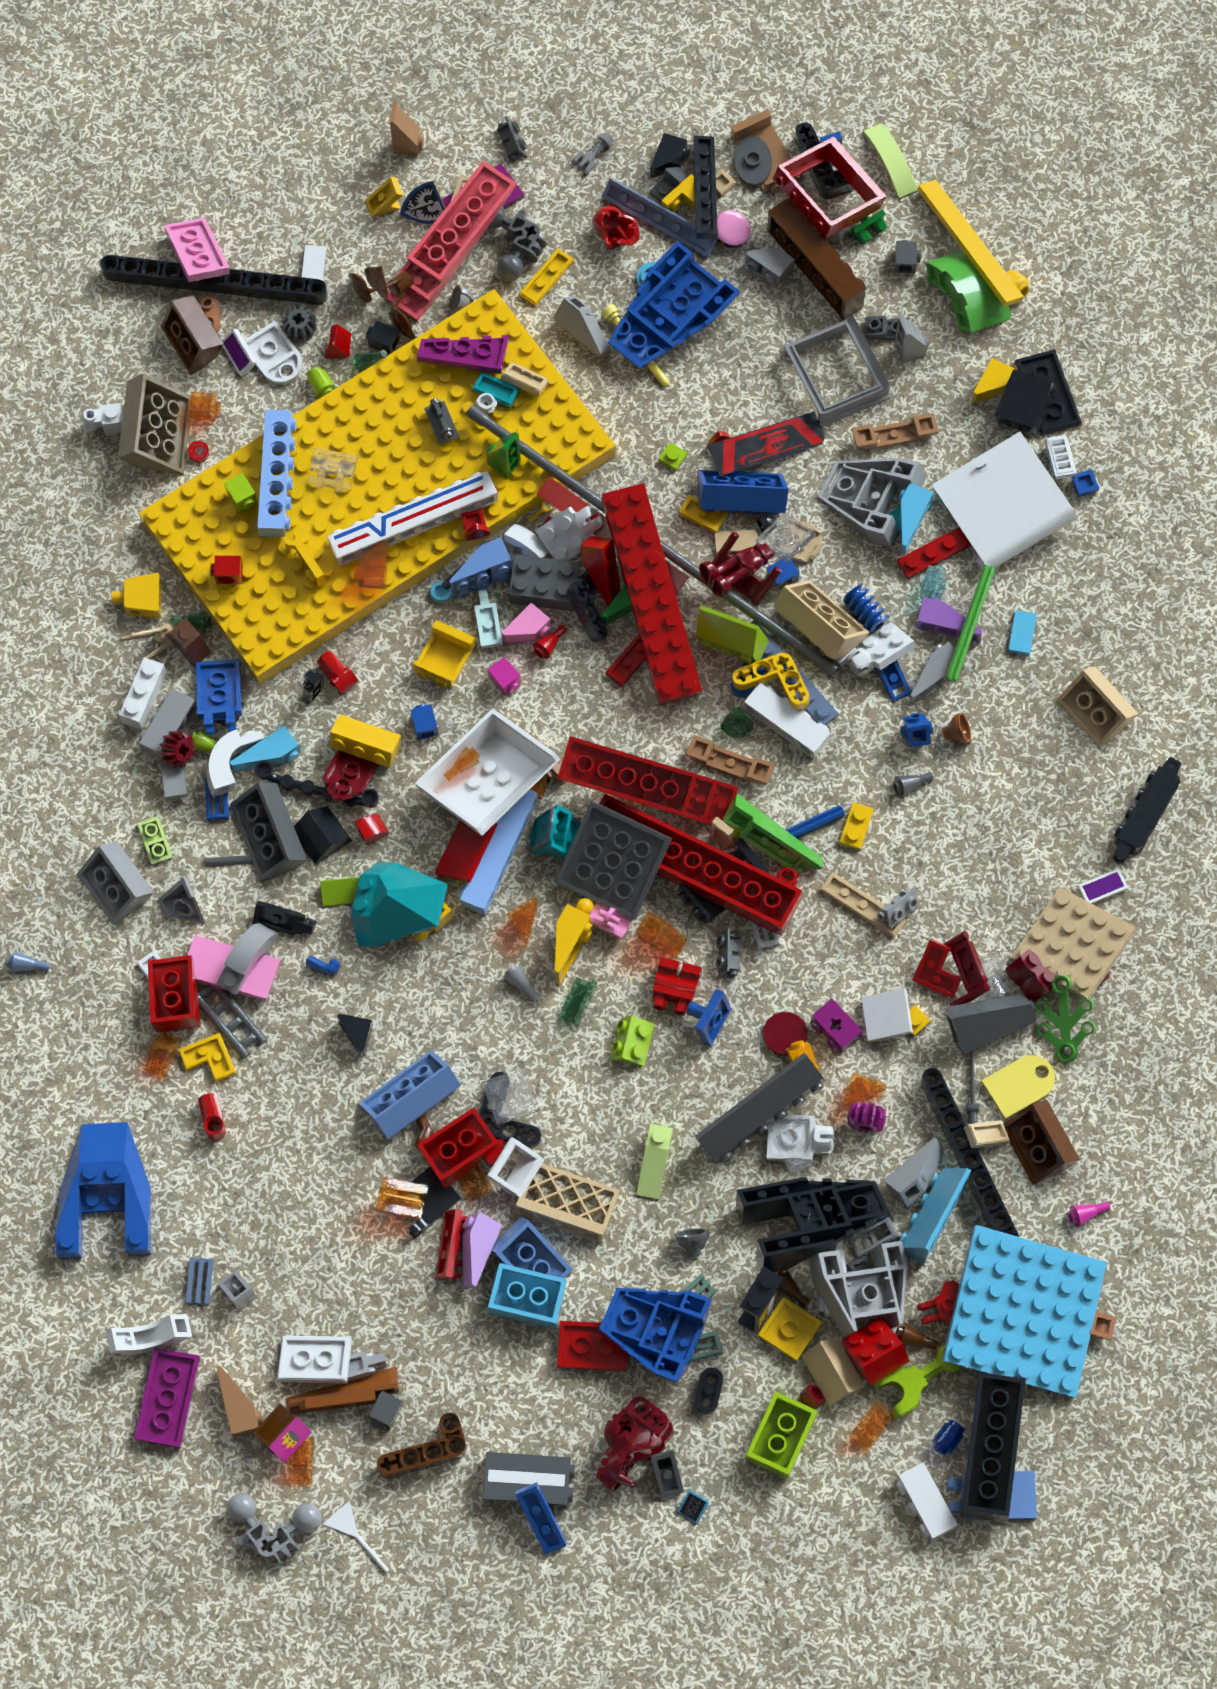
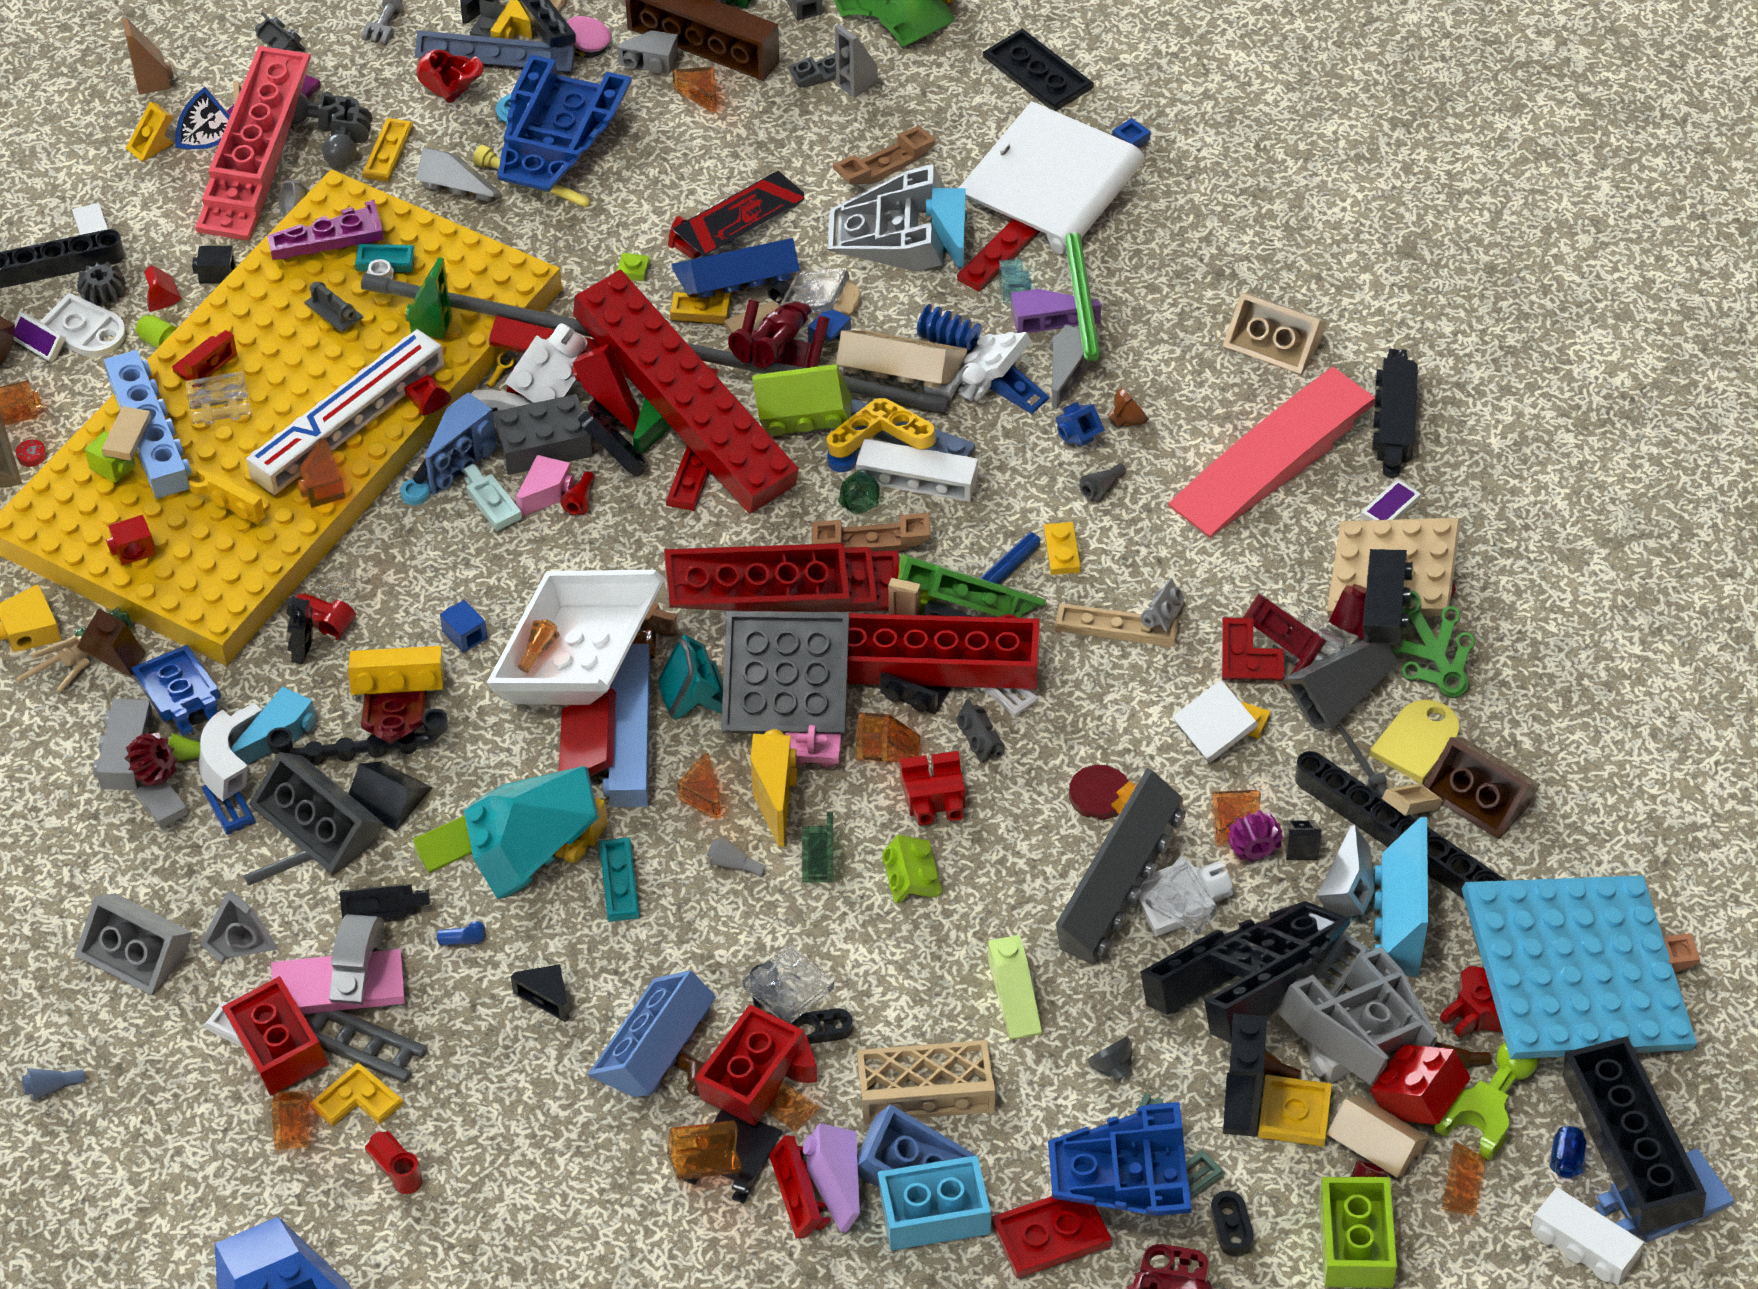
camera: 25 degrees left, 20 degrees down
(143, 693) = (75, 722): white brick -> none
(154, 840) = (164, 879): yellowish green slope -> none
(255, 483) = (126, 433): none -> tan tile
(337, 430) = (207, 357): none -> red panel
(366, 359) = (202, 290): clear green cone -> none
(371, 828) = (450, 763): red brick -> none
(396, 285) = (187, 183): reddish brown plant -> none
(441, 965) = (619, 879): none -> teal tile
(444, 655) = (453, 548): yellow panel -> none
(504, 676) = (541, 544): dark pink brick -> none
(523, 1171) = (849, 1064): white tile -> none
(525, 379) = (416, 234): tan plate -> none
(710, 1017) = (1000, 799): blue tile -> none
(792, 310) = (697, 85): none -> clear orange slope
(834, 1015) = (1160, 752): magenta brick -> none
(856, 402) = (814, 150): light grey piece -> none
(900, 1128) = (1301, 839): none -> black slope
(992, 381) = (972, 75): yellow slope -> none
(1022, 632) = (1144, 295): medium azure tile -> none
(1025, 403) = (1020, 76): black brick -> none
(1041, 809) = (1273, 452): none -> coral slope
(1044, 977) = (1387, 596): none -> black brick
(1058, 445) = (1090, 114): white slope -> none
(1082, 1213) = (1577, 844): dark pink cone -> none

